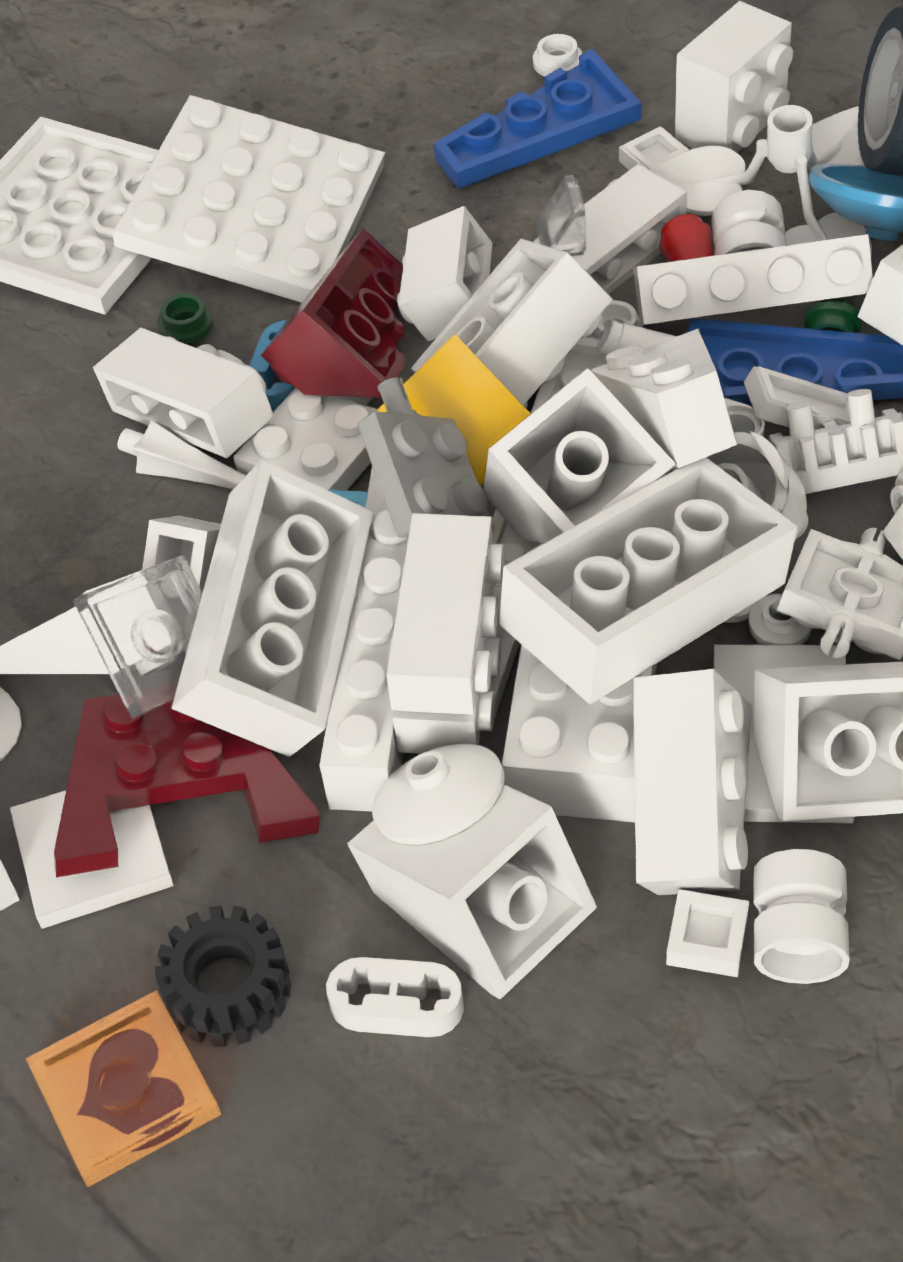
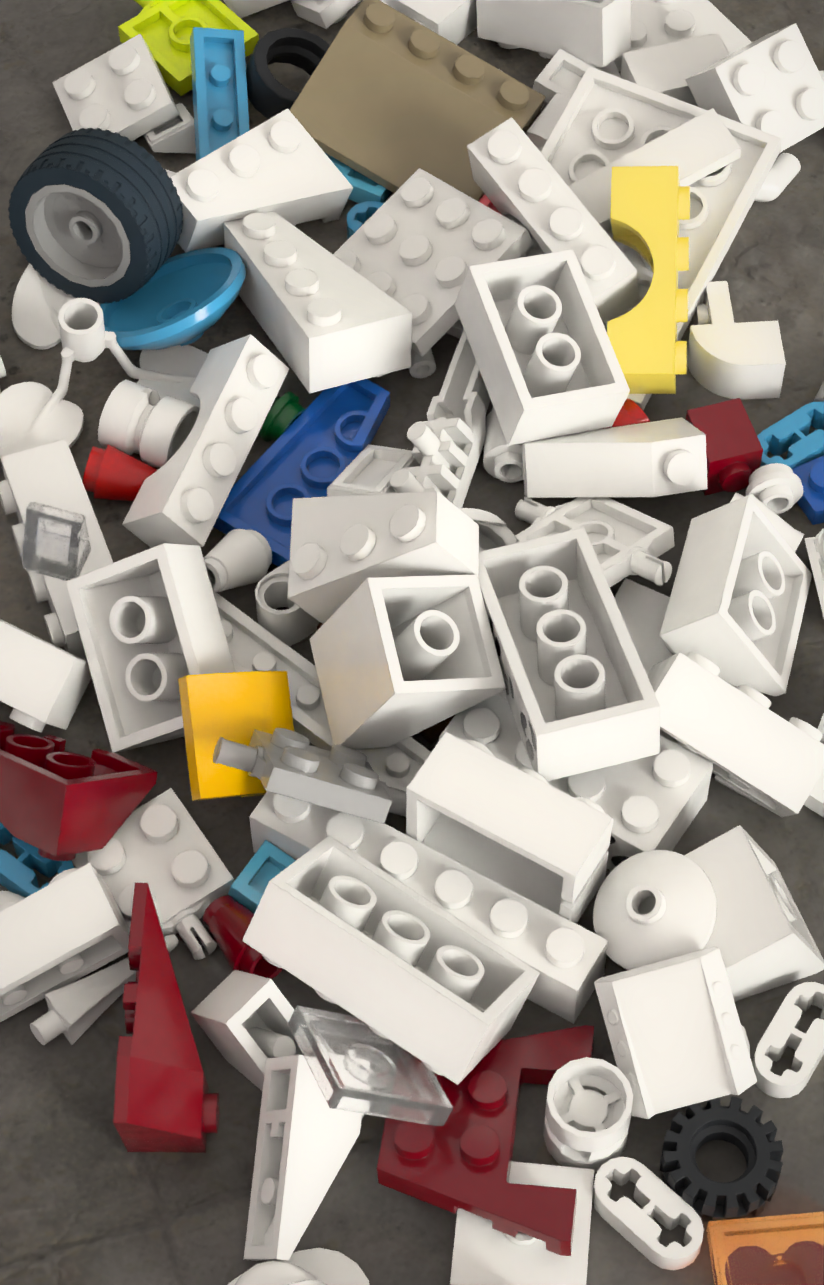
camera: 70 degrees left, 5 degrees up
(100, 503) = (159, 1076): none -> dark red wedge
(137, 934) = (637, 1223): none -> white beam
(210, 837) = (587, 1113): none -> white wheel
(320, 870) = (676, 1032): none -> white slope

